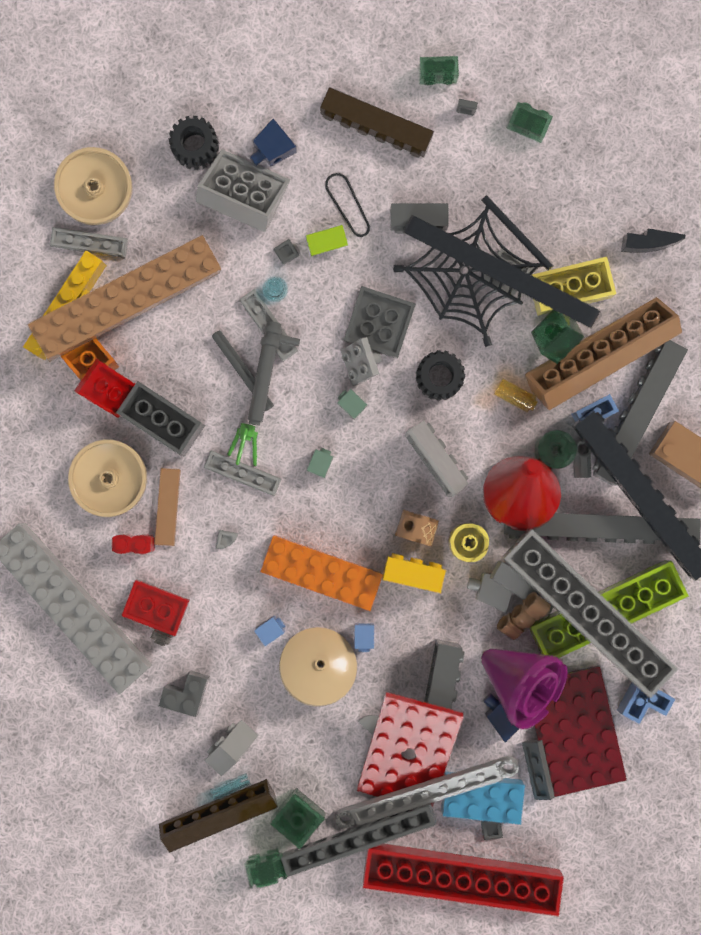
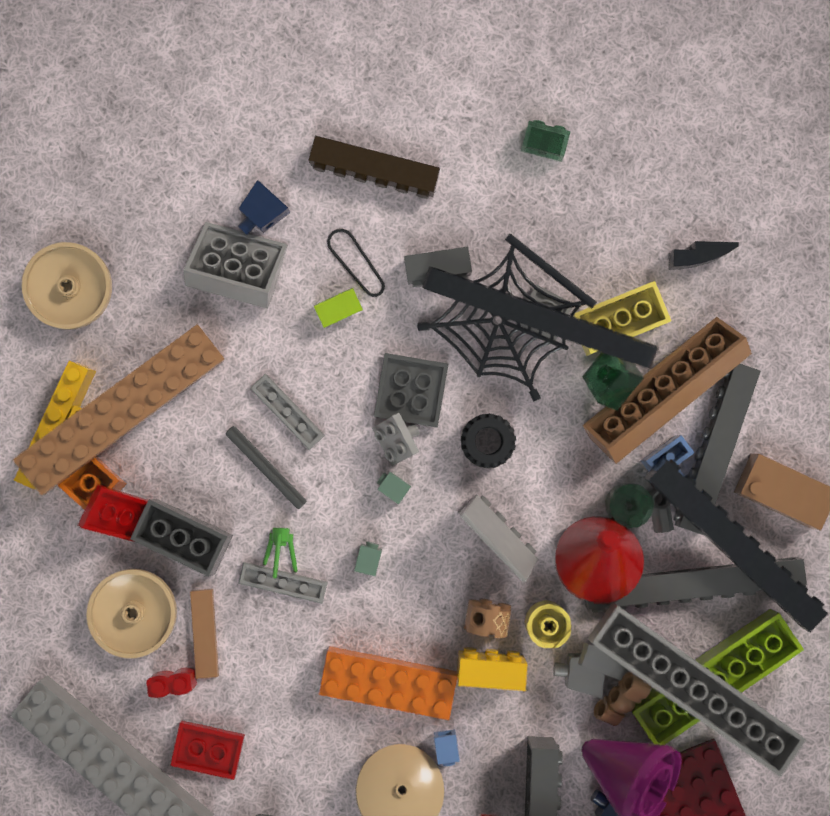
camera: 10 degrees left, 0 degrees up
(89, 242) = (72, 349): light grey tile -> none
(161, 638) = (218, 784): clear smoke plate -> none
(189, 128) = (165, 204): black tyre -> none
(225, 539) = (275, 659): light grey tile -> none
(269, 289) = (294, 366): clear light blue cone -> none
(270, 343) = (291, 433): dark grey cylinder -> none
(270, 630) = (340, 756): medium blue brick -> none
(286, 252) = (295, 326): dark grey tile -> none
(438, 70) = (435, 98): clear green brick -> none
(466, 107) = (472, 134): dark grey tile -> none
(515, 395) = (575, 450): clear yellow brick -> none
(636, 703) = (762, 782): medium blue brick -> none

